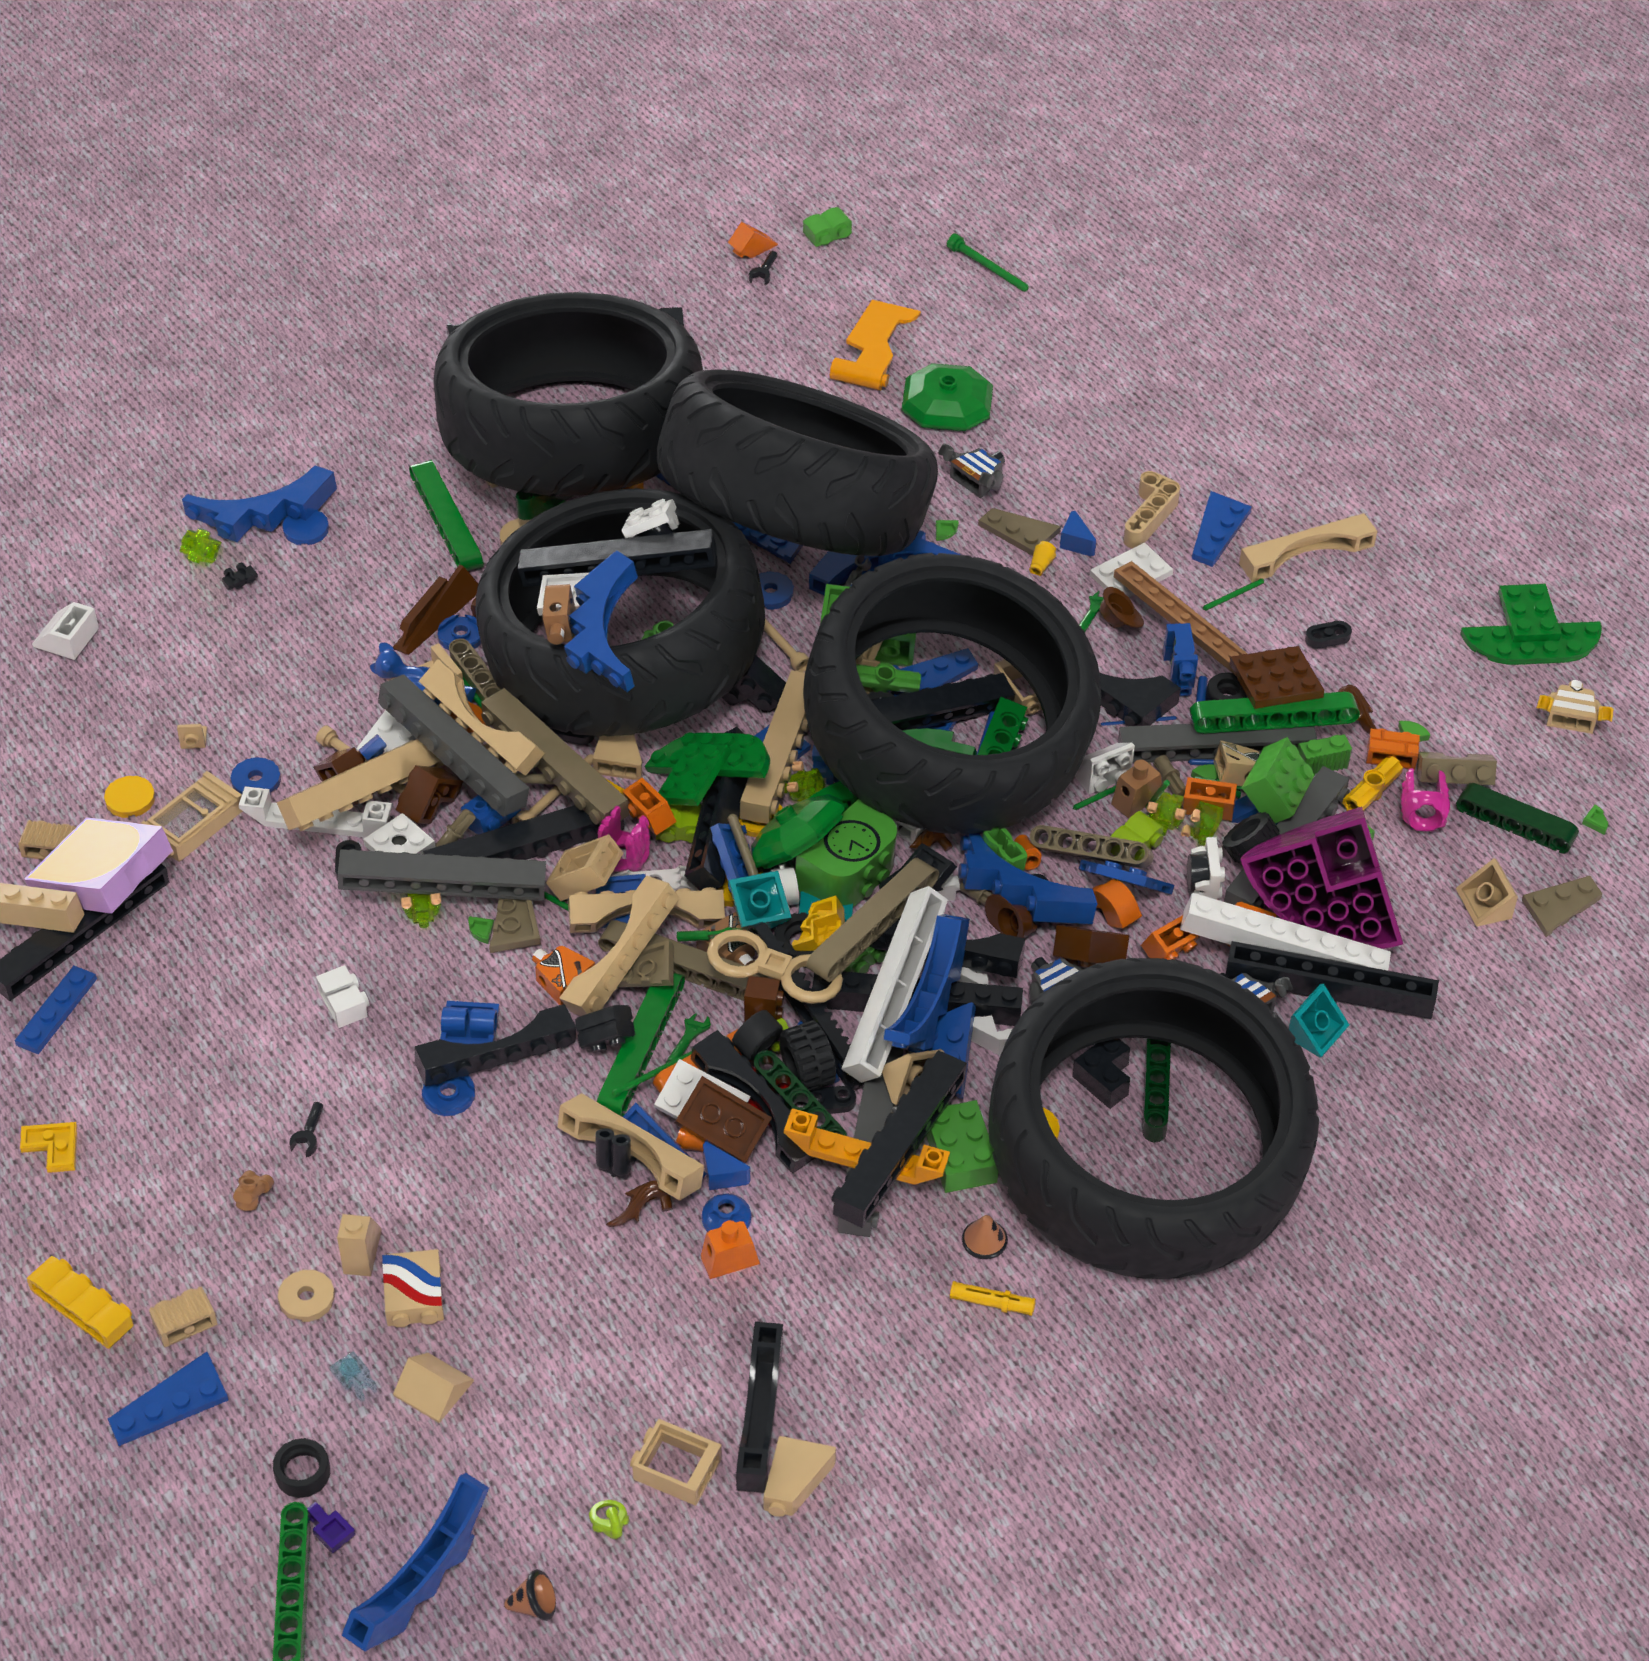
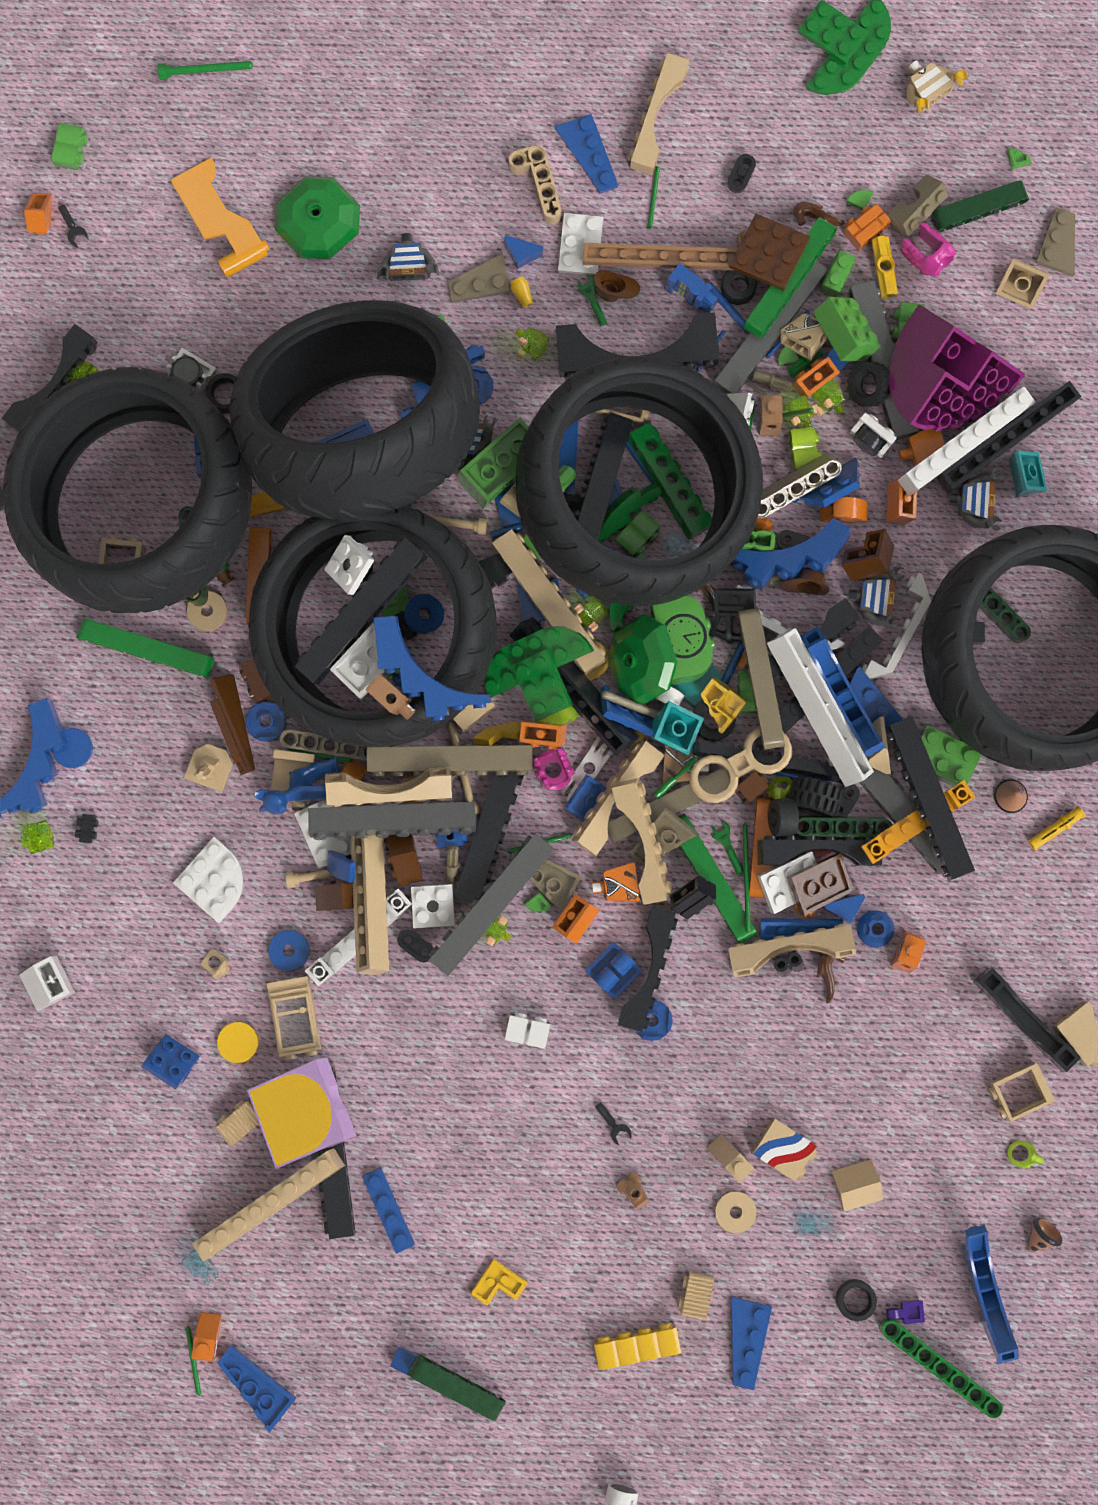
camera: 50 degrees left, 35 degrees up
(65, 756) = (170, 1061): none -> blue plate
(273, 687) = (213, 880): none -> white plate
(376, 617) = (210, 767): none -> tan piece
(493, 957) = (575, 918): none -> orange brick
(584, 867) = (570, 802): tan window -> none

